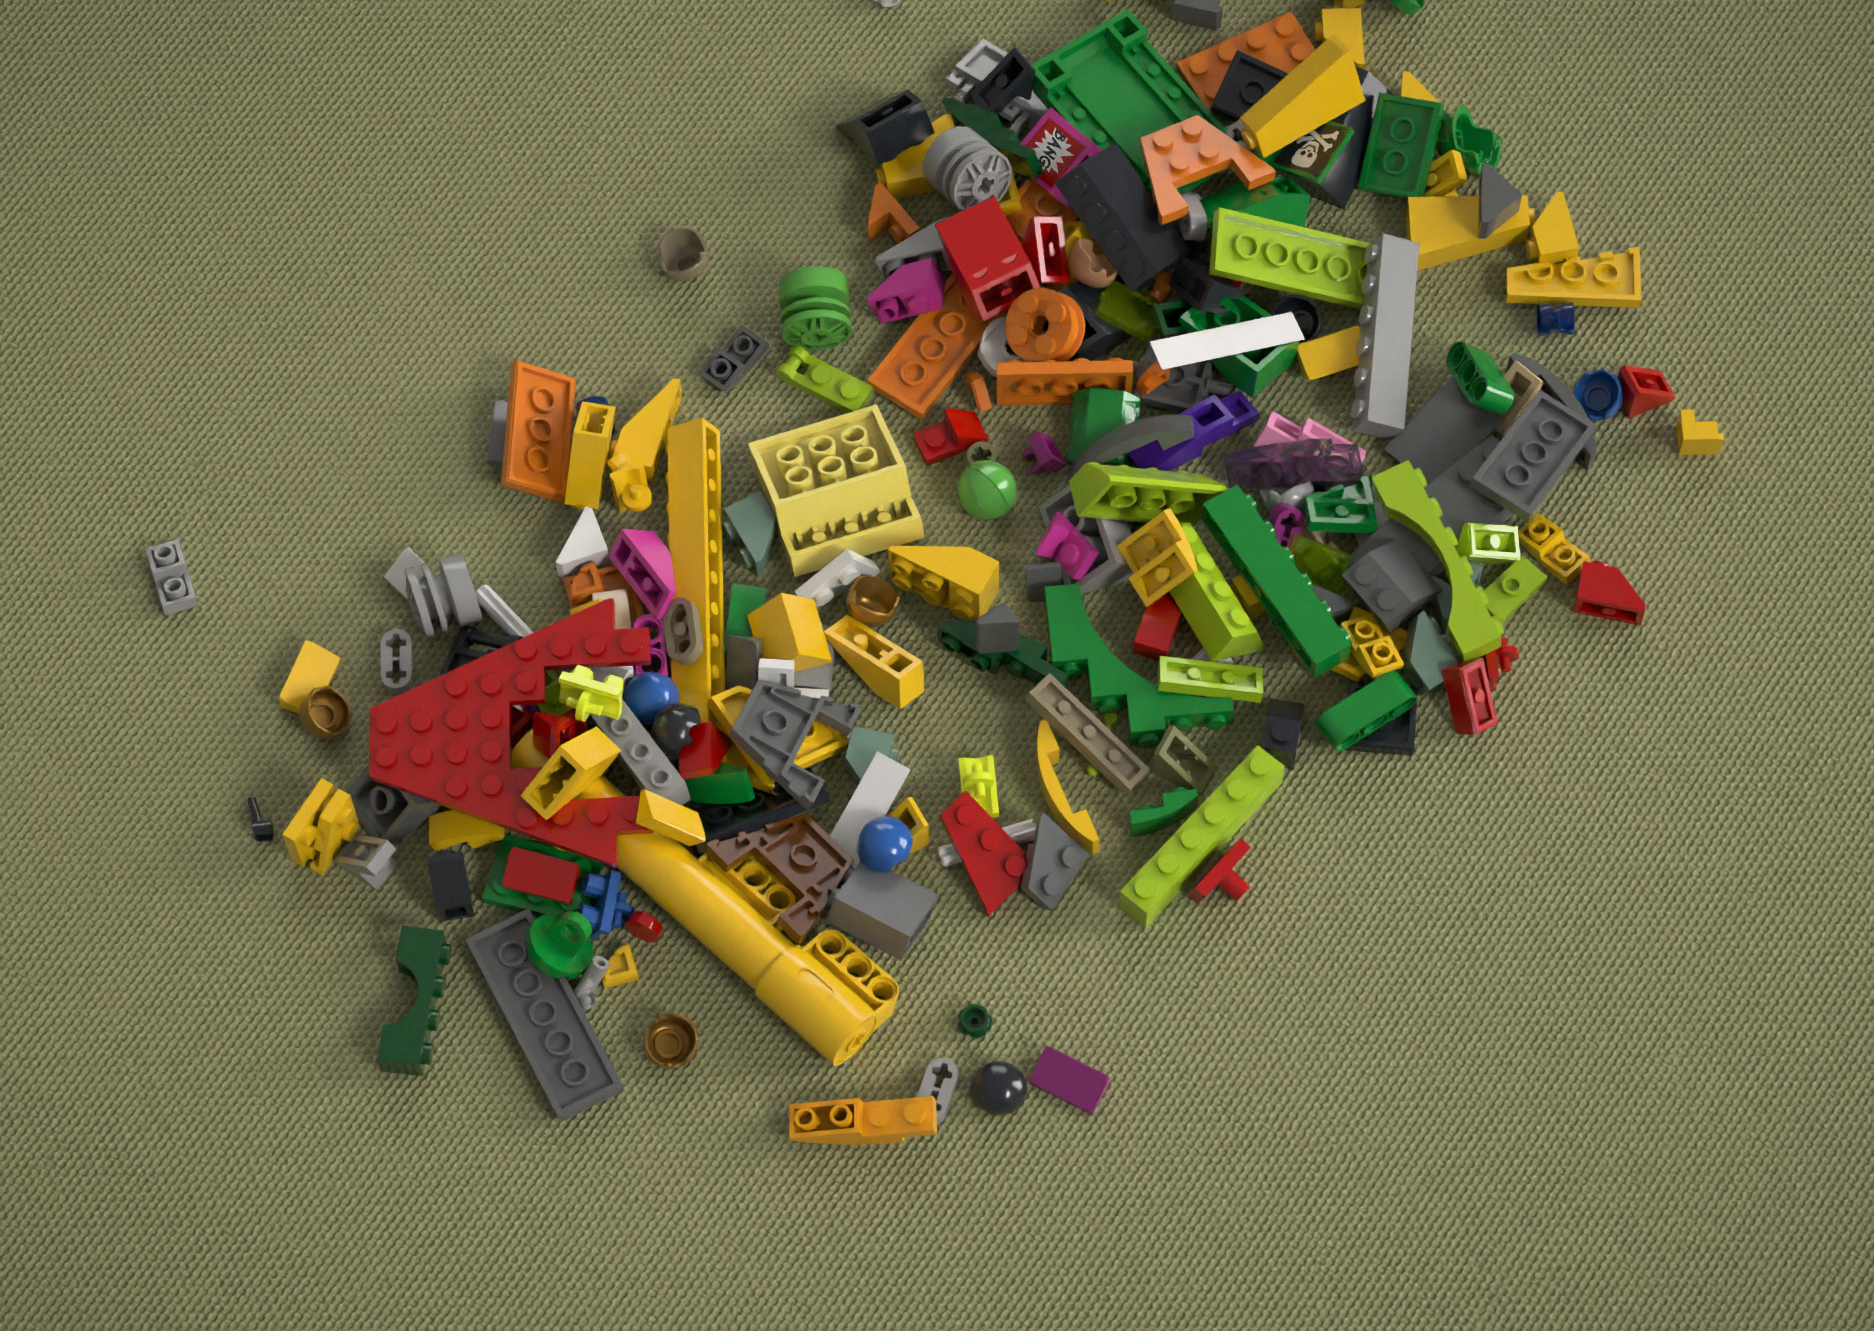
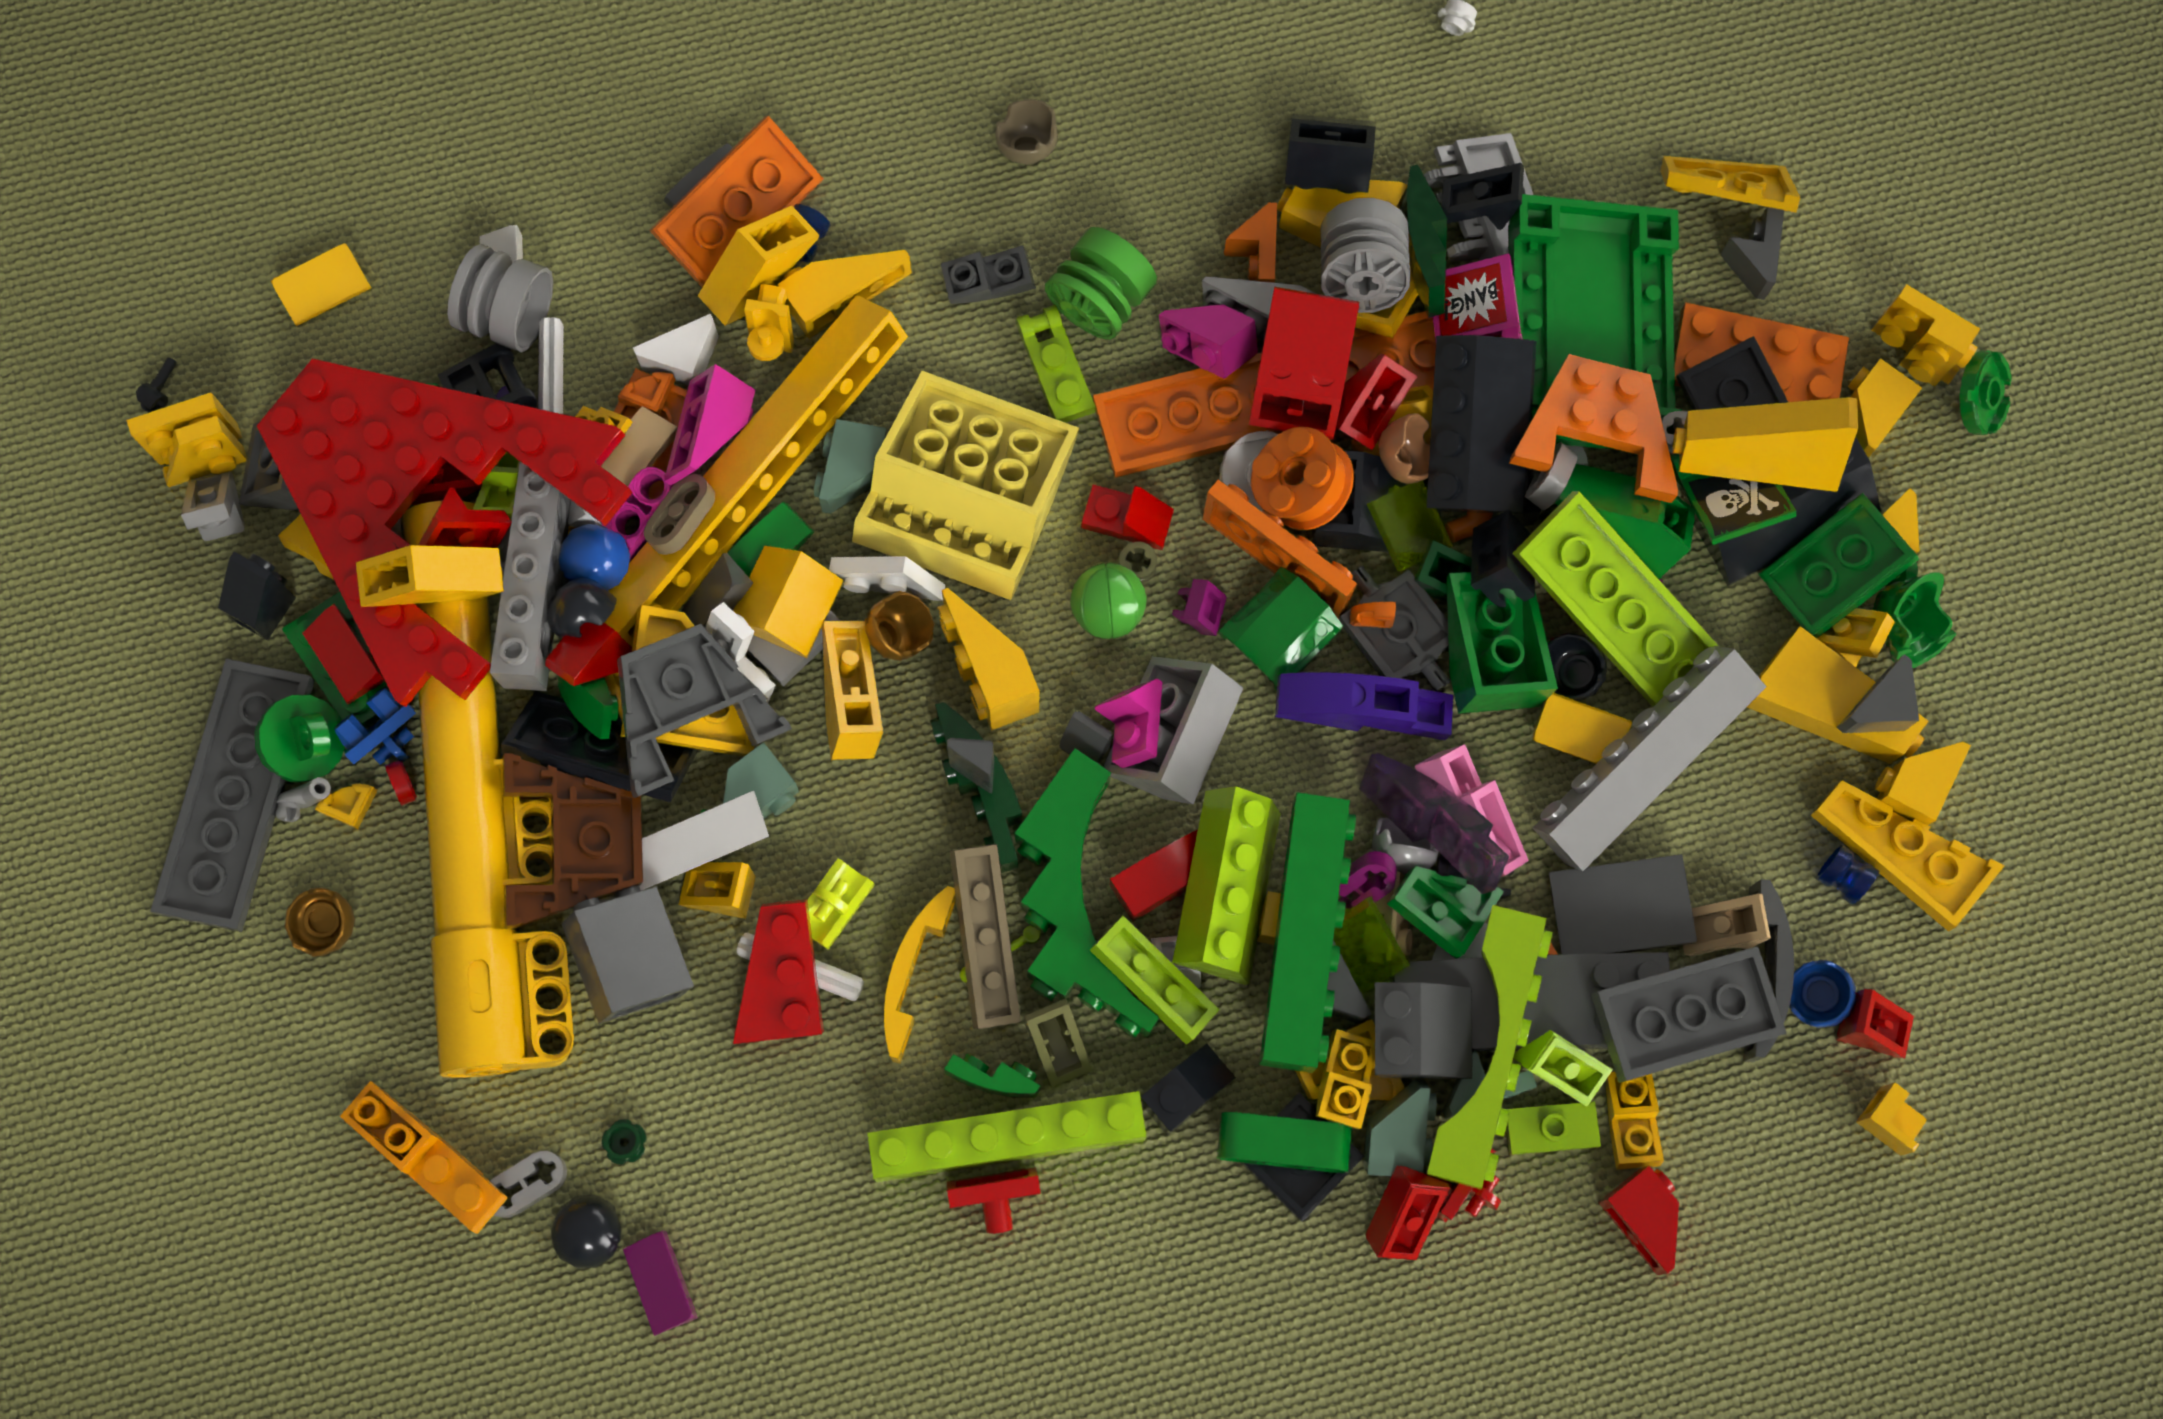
camera: 35 degrees right, 10 degrees up
(171, 577) = (293, 87): light grey slope -> none
(324, 712) = (300, 329): pearl gold hair -> none
(404, 661) = (415, 330): light grey beam -> none
(405, 1043) = (170, 650): dark green arch -> none
(591, 696) = (508, 516): neon yellow hips -> none
(669, 819) = (488, 698): yellow slope -> none
(884, 843) = (681, 891): blue hair -> none
(977, 384) = (1193, 490): orange tile -> none
(1050, 862) = (835, 1040): dark grey wing -> none
(1140, 493) = (1250, 730): lime slope -> none
(1158, 557) = (1204, 813): yellow slope -> none
(1166, 429) = (1328, 680): dark grey slope -> none
(1227, 340) = (1475, 636): white sticker -> none
(1479, 378) = (1707, 880): green beam -> none

